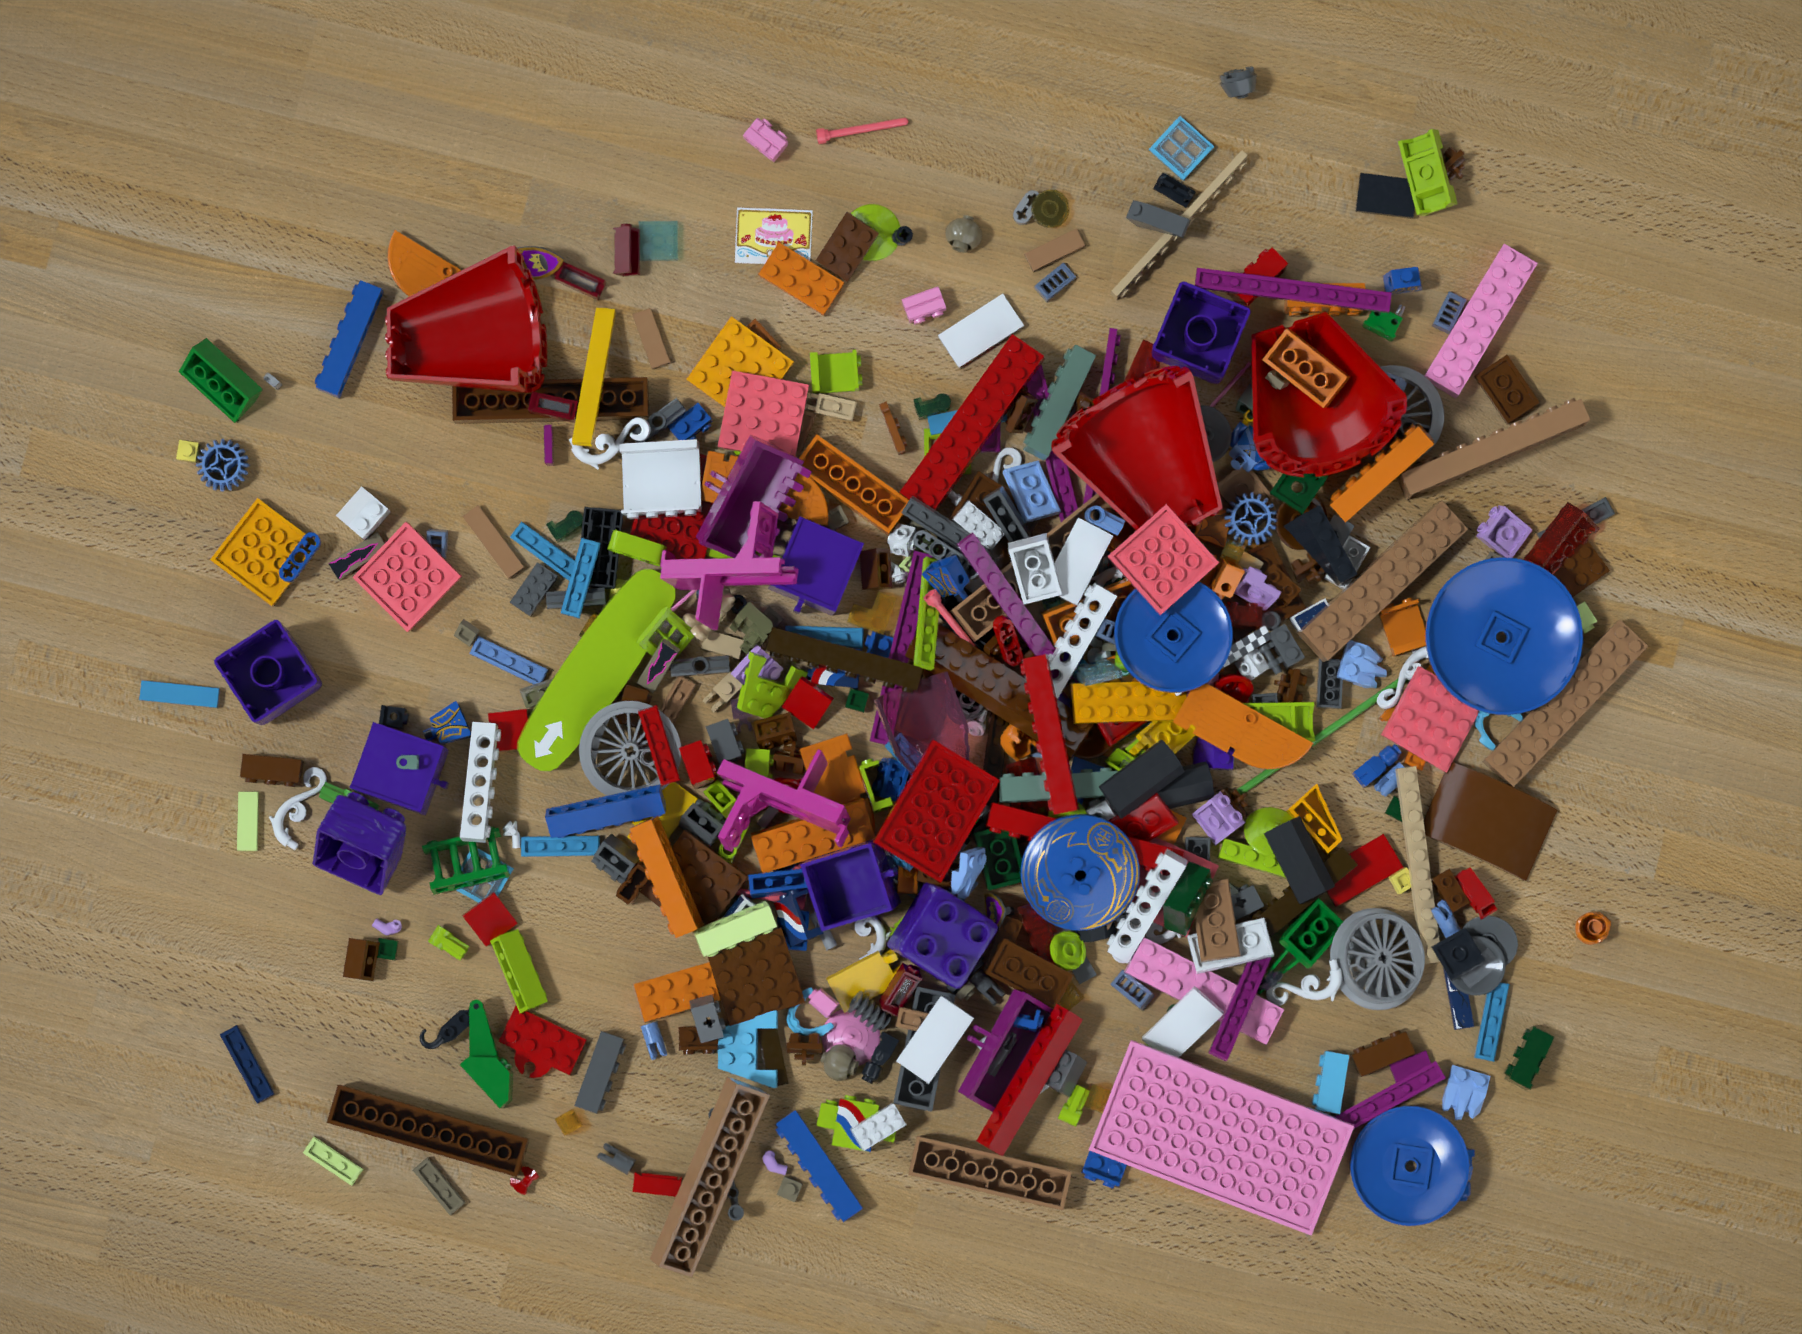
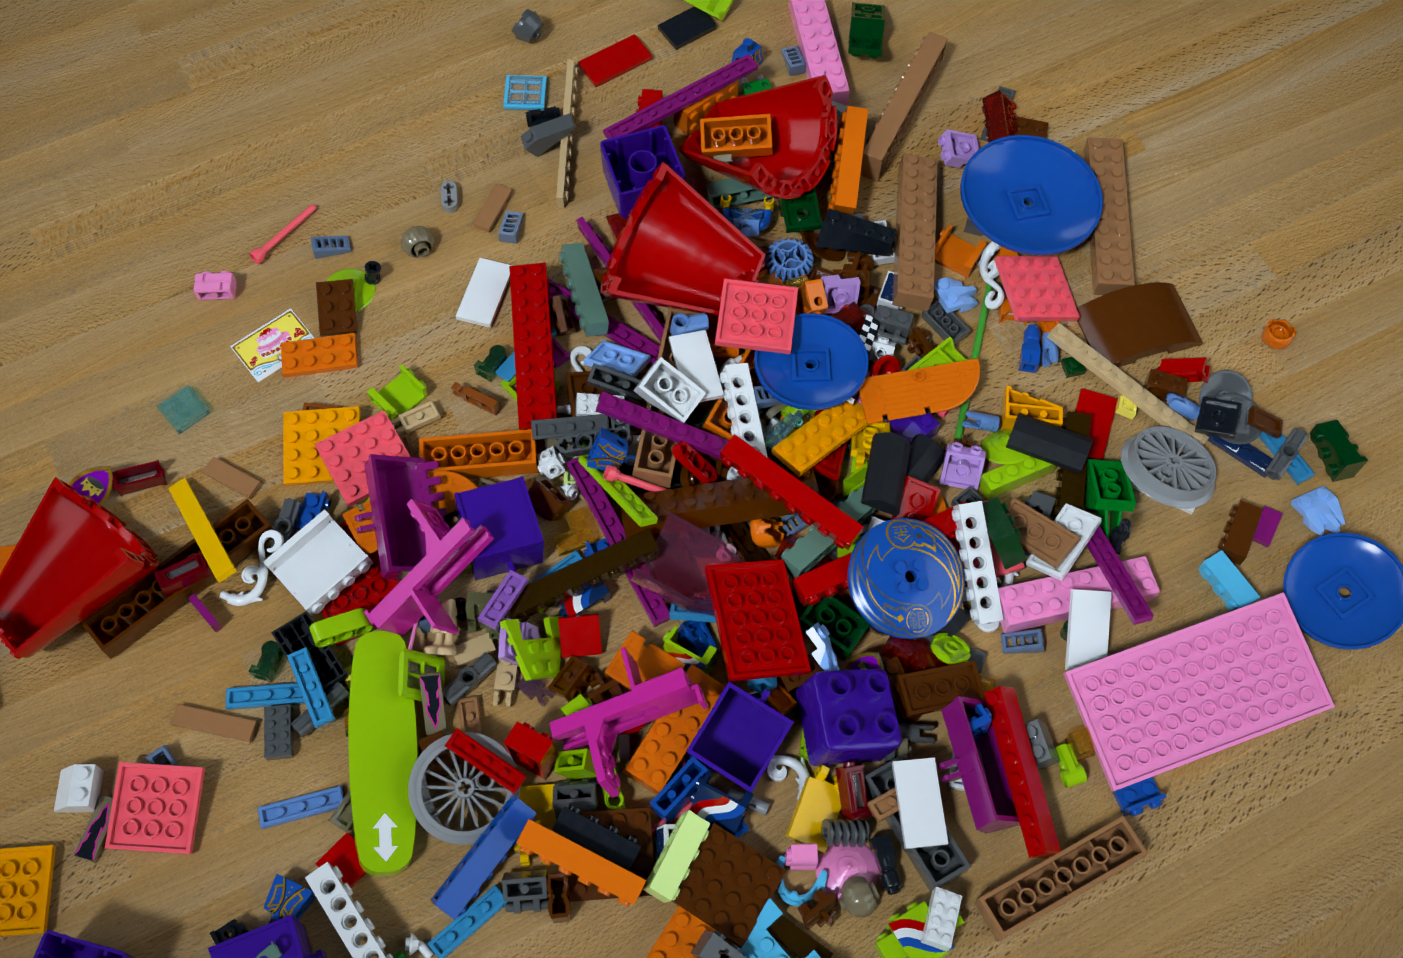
camera: 45 degrees left, 20 degrees down
(312, 548) = (47, 875): blue beam -> none
(466, 632) = (244, 812): dark tan plate -> none
(627, 250) = (162, 430): dark red window -> none
(691, 868) = (596, 837): none -> black brick
(724, 742) = (536, 713): dark grey brick -> none
(768, 633) = (503, 599): none -> medium lavender plate
(857, 700) = (617, 604): dark green plate -> none
(879, 162) = (329, 240): none -> sand blue slope
(924, 305) = (427, 304): bright pink brick -> none
(1050, 208) = (466, 184): clear yellow tile -> none
(1272, 793) = (983, 421): none -> medium blue hinge
(1289, 179) = (615, 60): none -> red tile
(1305, 991) = (1147, 531): white plant -> none
(1393, 1095) = (1279, 551): magenta plate -> none
(1471, 1029) = (1282, 461): none -> dark grey piece
(1485, 740) = (1068, 272): medium azure helmet -> none
(1494, 989) = (1265, 422): none -> reddish brown tile
(1507, 389) = (875, 73): reddish brown plate -> none
(1537, 341) = (866, 30): none -> dark green bracket

